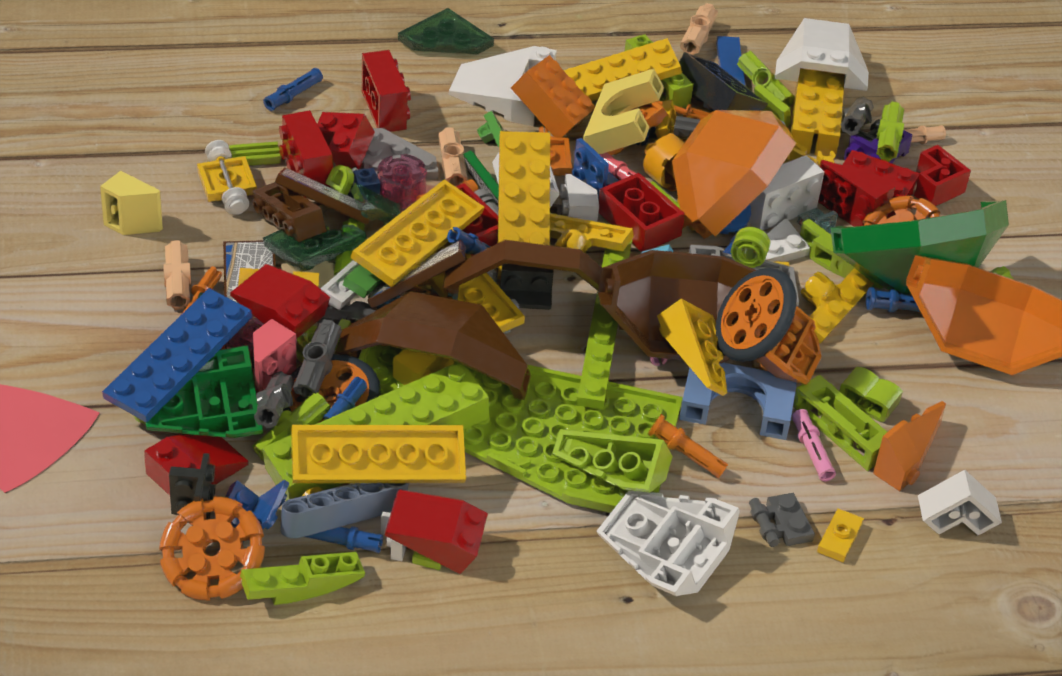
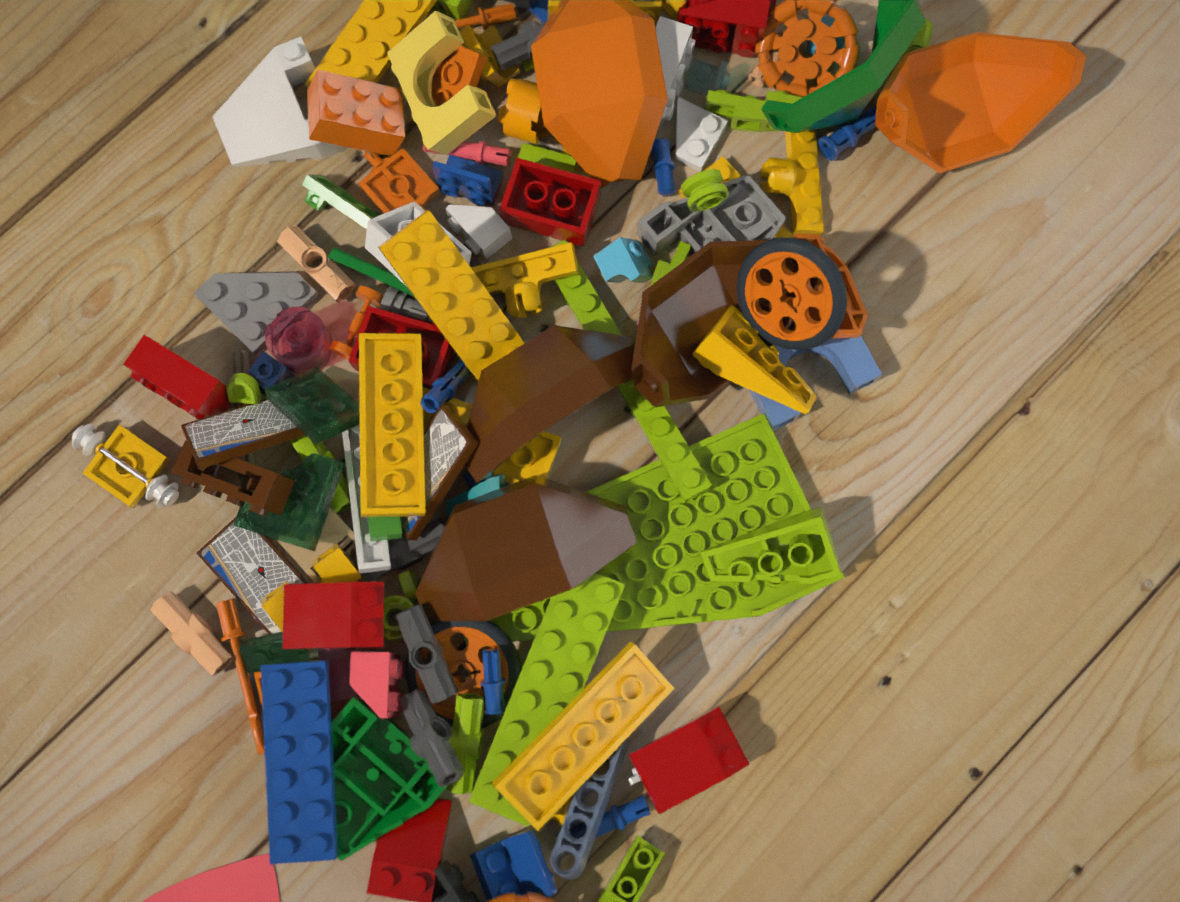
camera: 30 degrees left, 35 degrees up
(130, 205) = (71, 592): light yellow slope -> none
(257, 153) = (106, 413): lime tile -> none
(287, 92) = (78, 320): blue pin -> none
(346, 136) = (201, 321): red brick -> none
(385, 91) = (180, 227): red brick -> none
(446, 33) = (165, 86): clear green plate -> none
(671, 539) = (885, 604): white wedge -> none
(676, 439) = (805, 478): orange pin -> none
(788, 517) = (950, 480): dark grey plate -> none
(803, 422) = (937, 397): bright pink pin -> none
(840, 535) = (1003, 463): yellow plate -> none
(841, 420) = (956, 344): lime brick -> none
(871, 394) = (913, 272): lime brick -> none
(906, 447) = (995, 321): orange wedge -> none
(958, 501) = (1090, 354): white brick -> none

